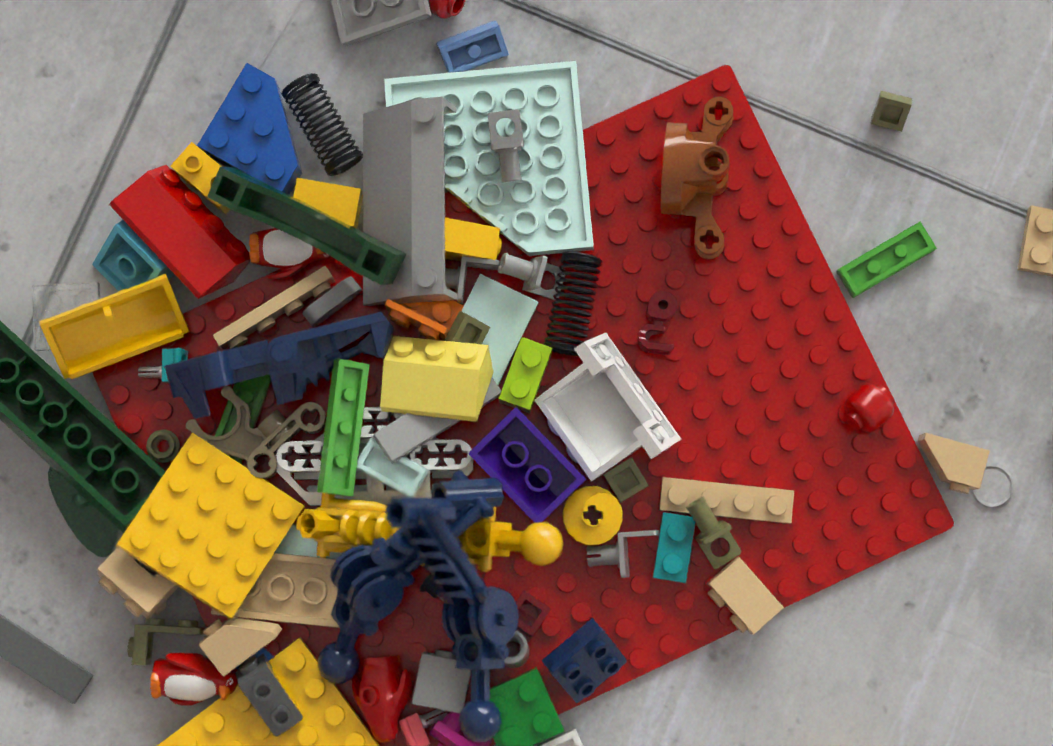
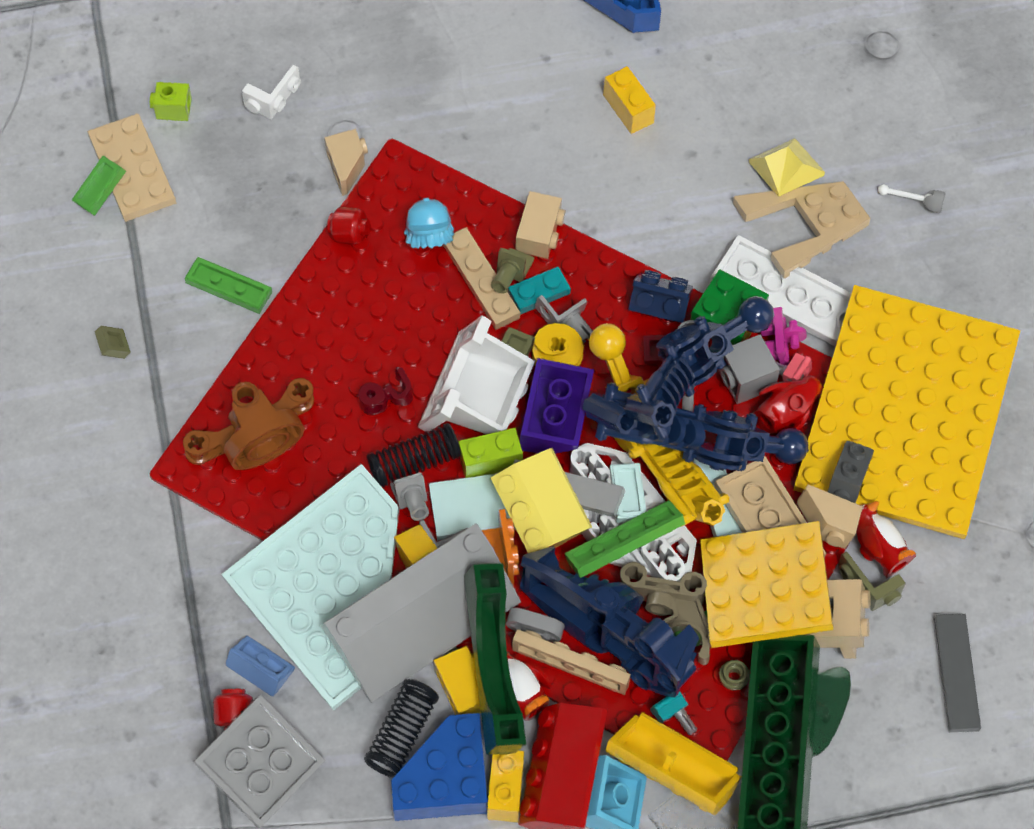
camera: 125 degrees left, 20 degrees down
(467, 330) = (488, 508): olive plate -> none
(507, 146) = (325, 571): light grey bracket -> none
(814, 484) = (428, 224): none -> medium azure hair

